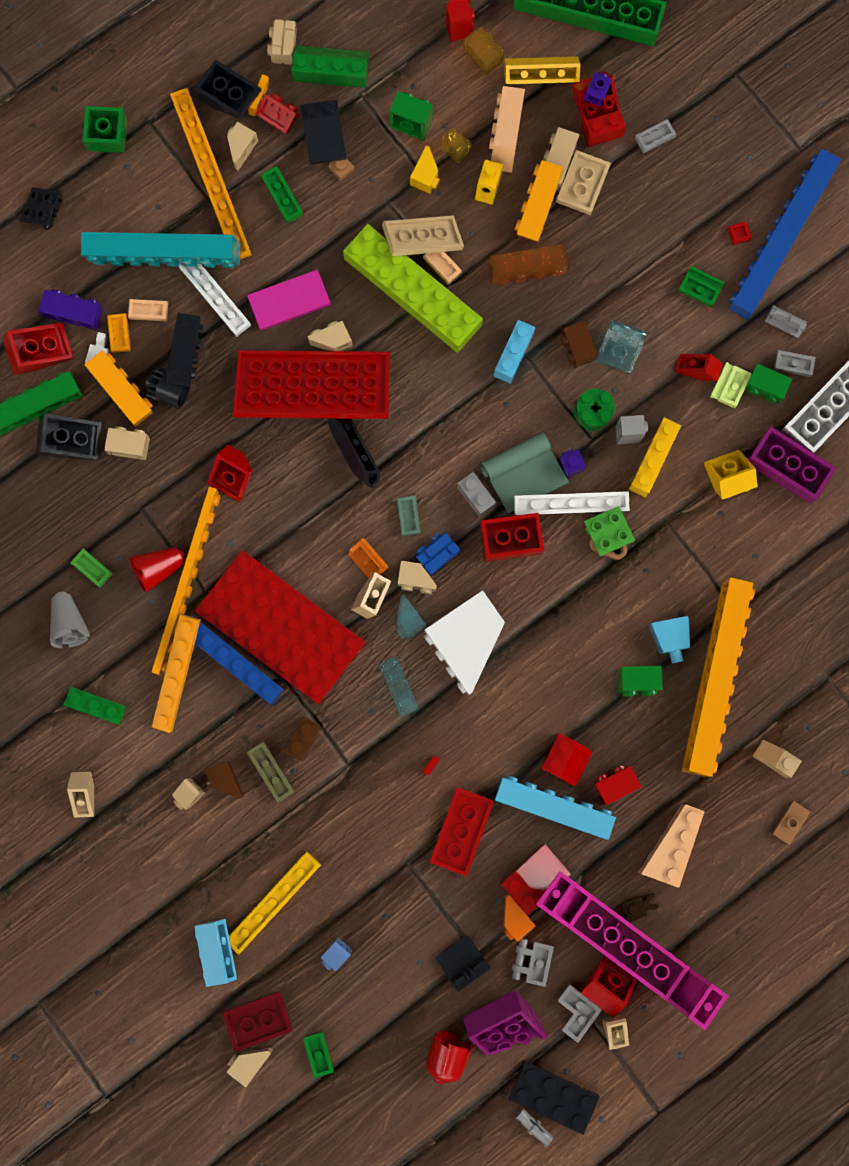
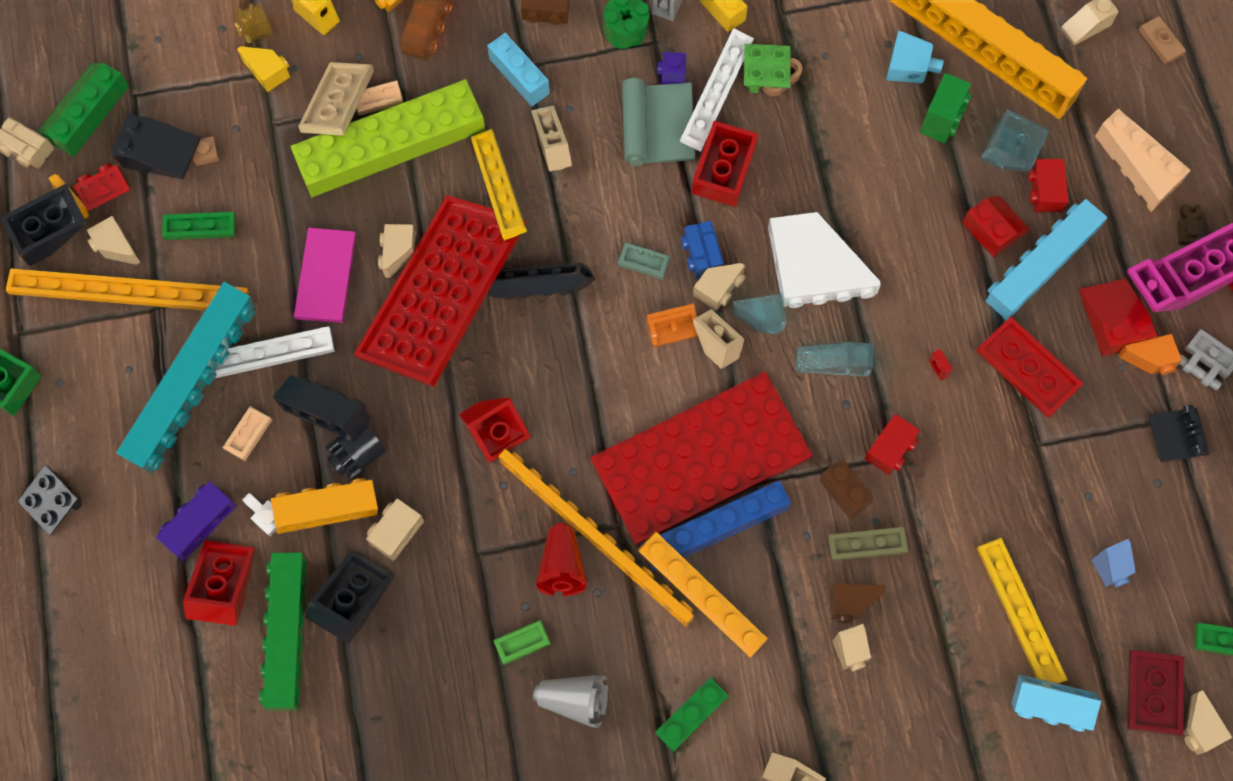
camera: 60 degrees left, 10 degrees down
(118, 333) = (255, 479): light orange plate -> none
(352, 757) = (892, 444): none -> red brick
(410, 383) = (498, 184): none -> yellow tile
(411, 115) = (194, 48): green brick -> none
(471, 402) = (551, 138): none -> tan slope
(476, 494) = (658, 179): light grey brick -> none
(637, 744) = (1014, 143): none -> clear light blue slope

